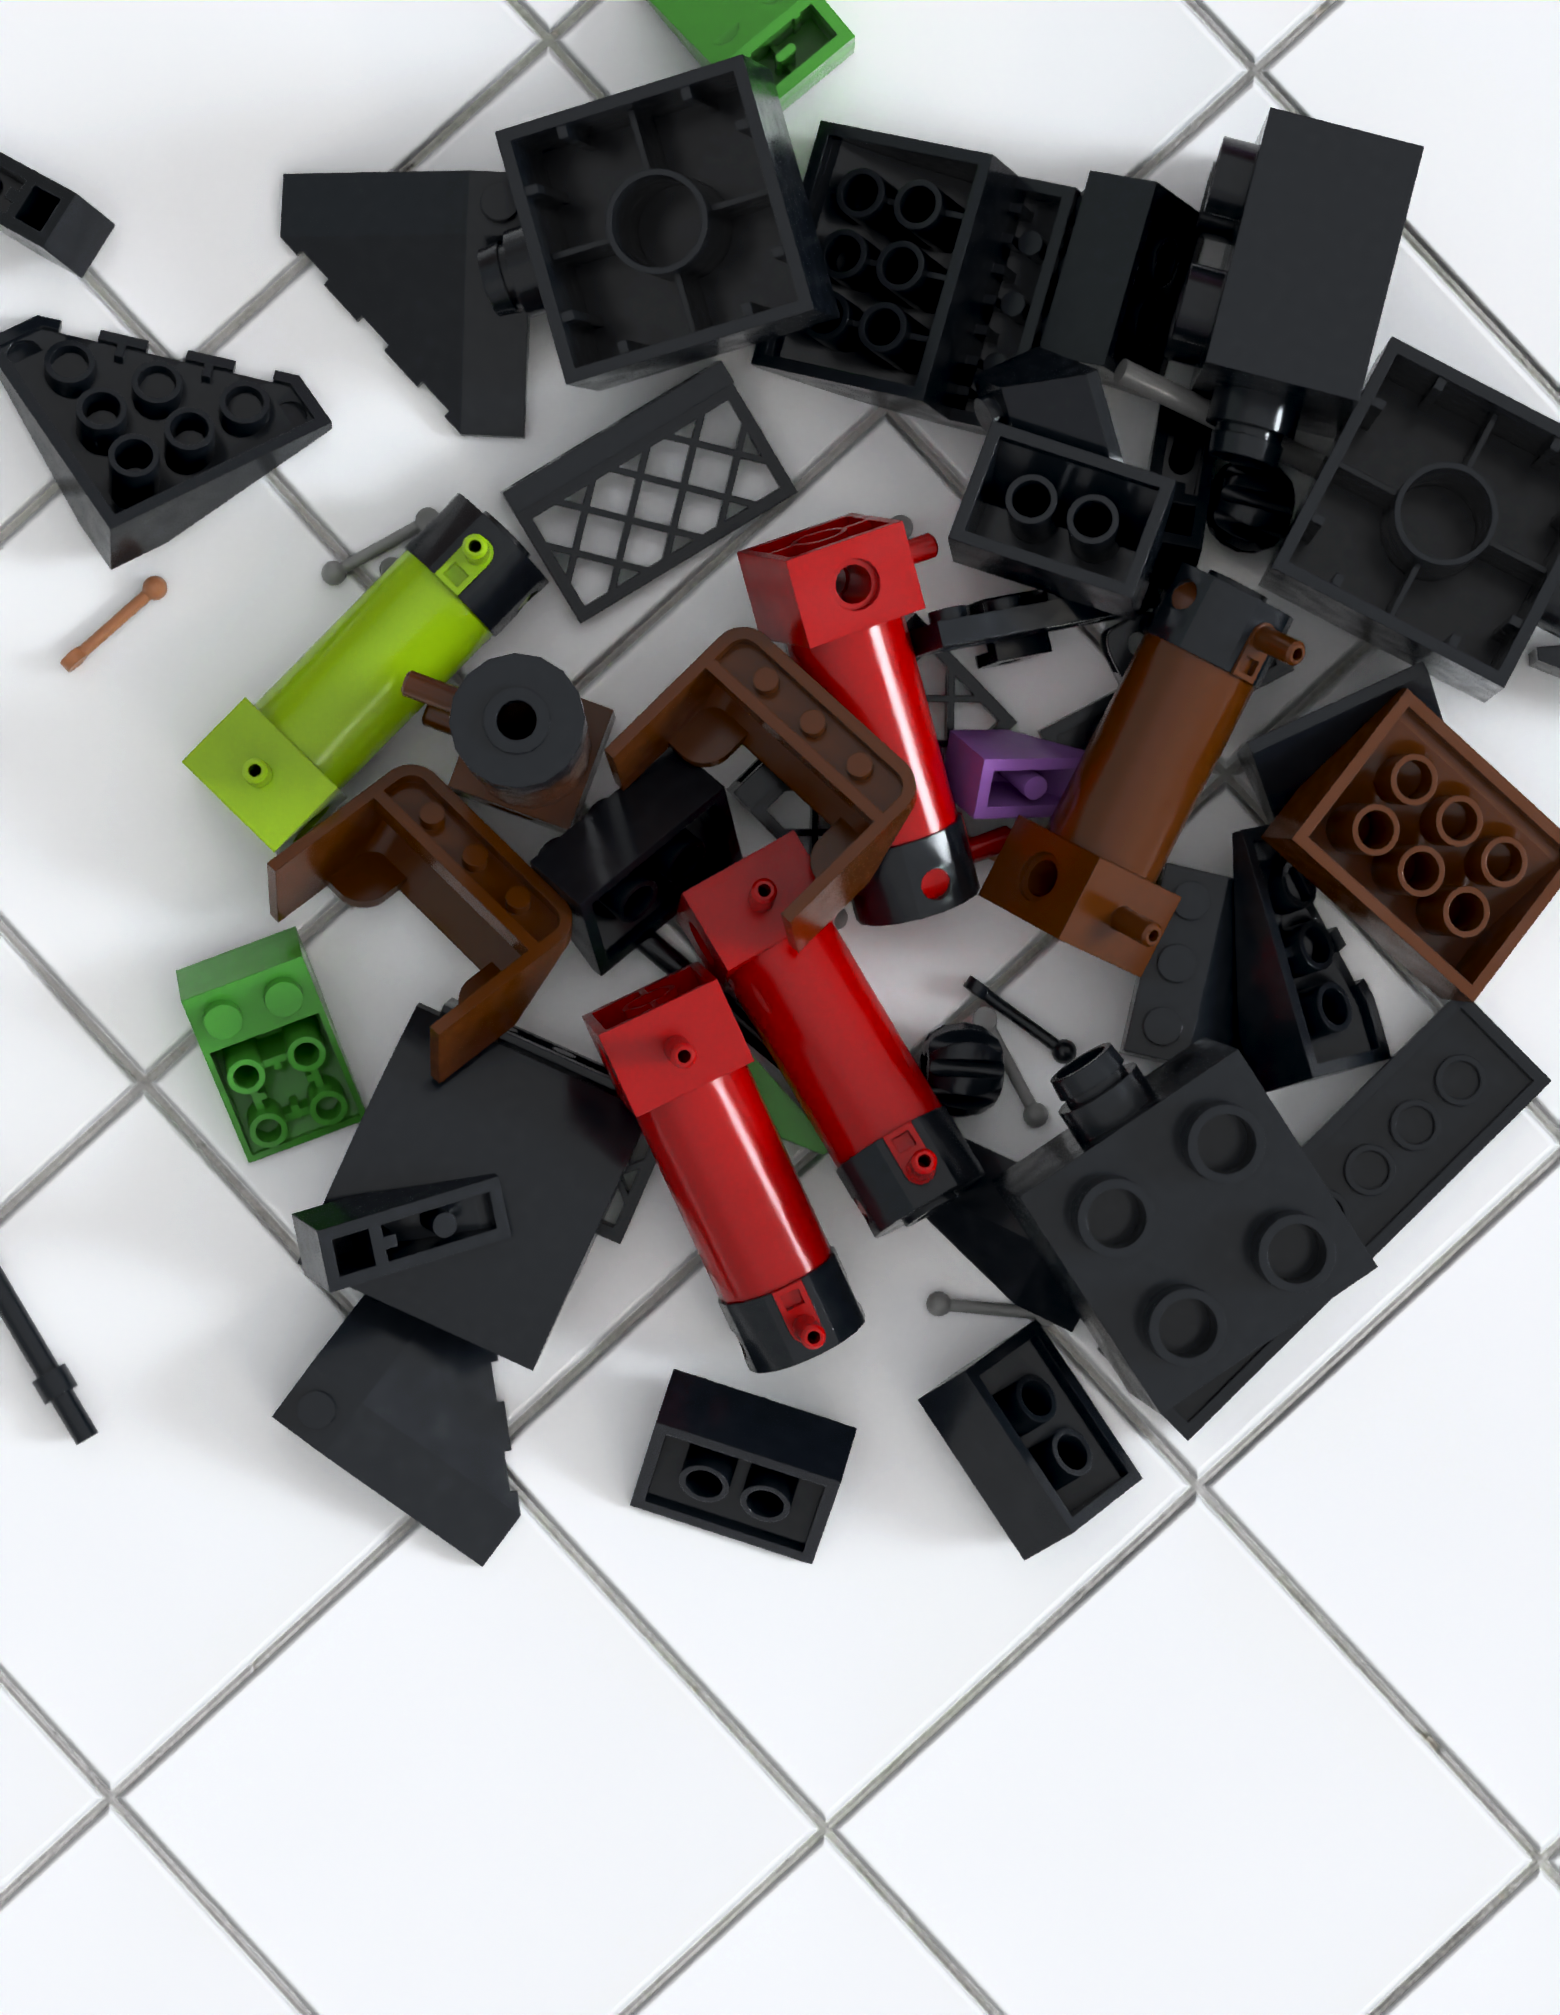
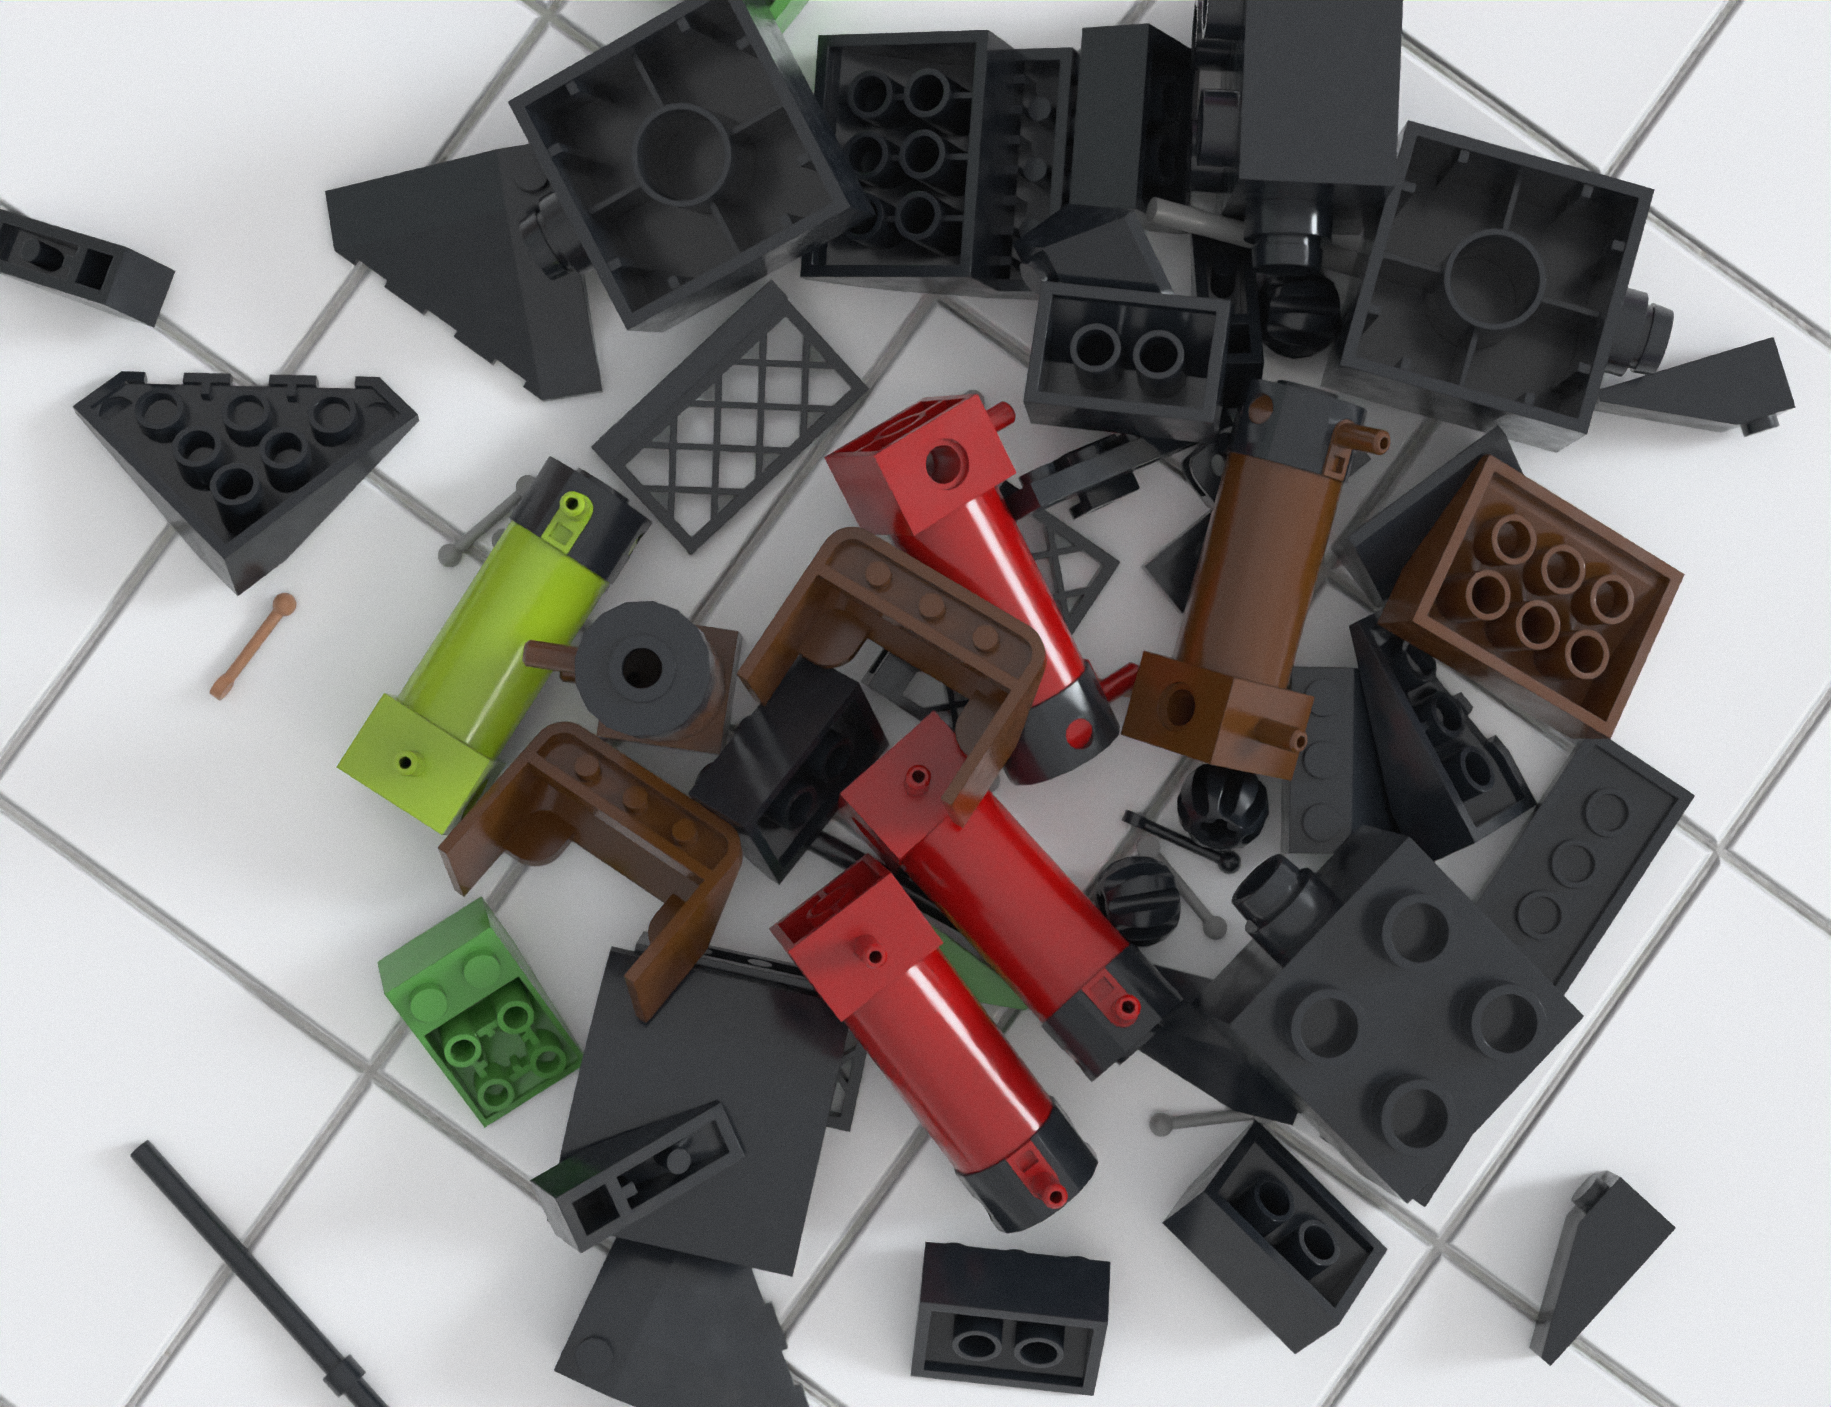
camera: 10 degrees left, 0 degrees up
(1007, 773) = (1124, 612): medium lavender slope -> none
(1068, 991) = (1222, 807): none -> black piece
(1355, 1522) = (1598, 1252): none -> black slope

